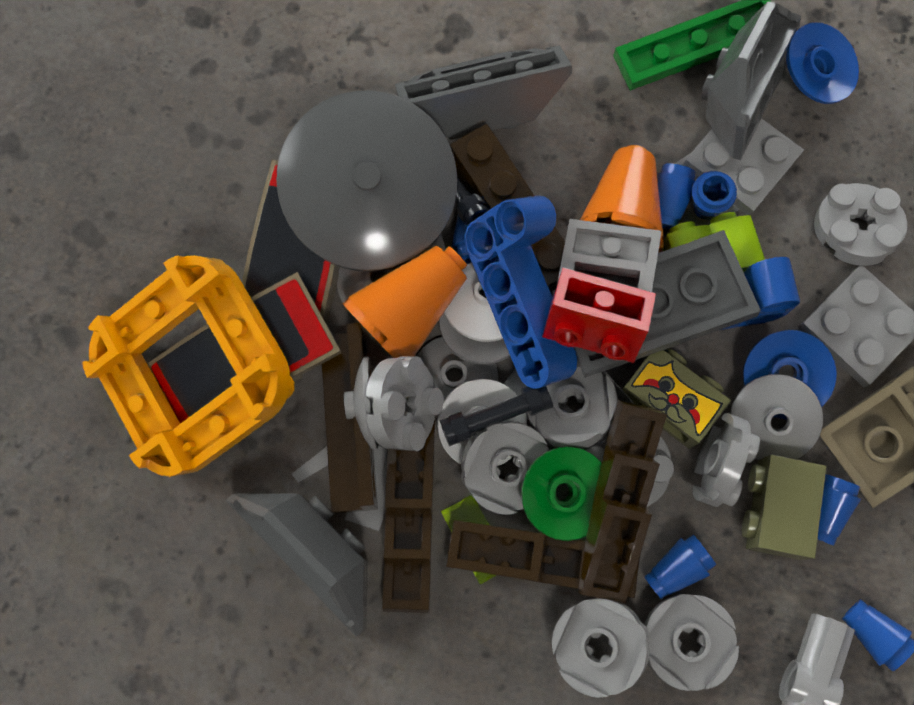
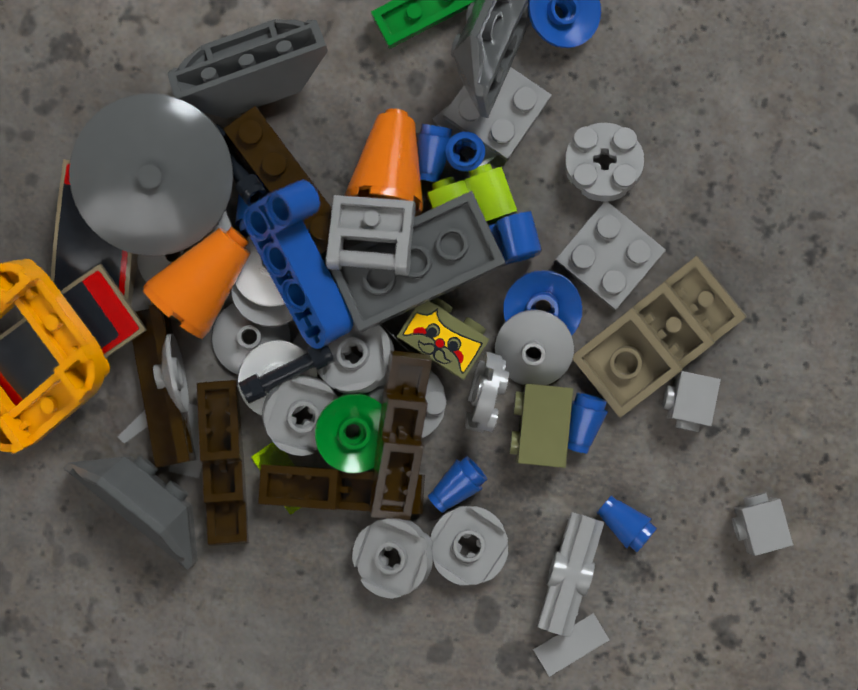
camera: 10 degrees left, 10 degrees up
(402, 403) = (210, 390): light grey plate -> none
(599, 315) = (361, 285): red brick -> none

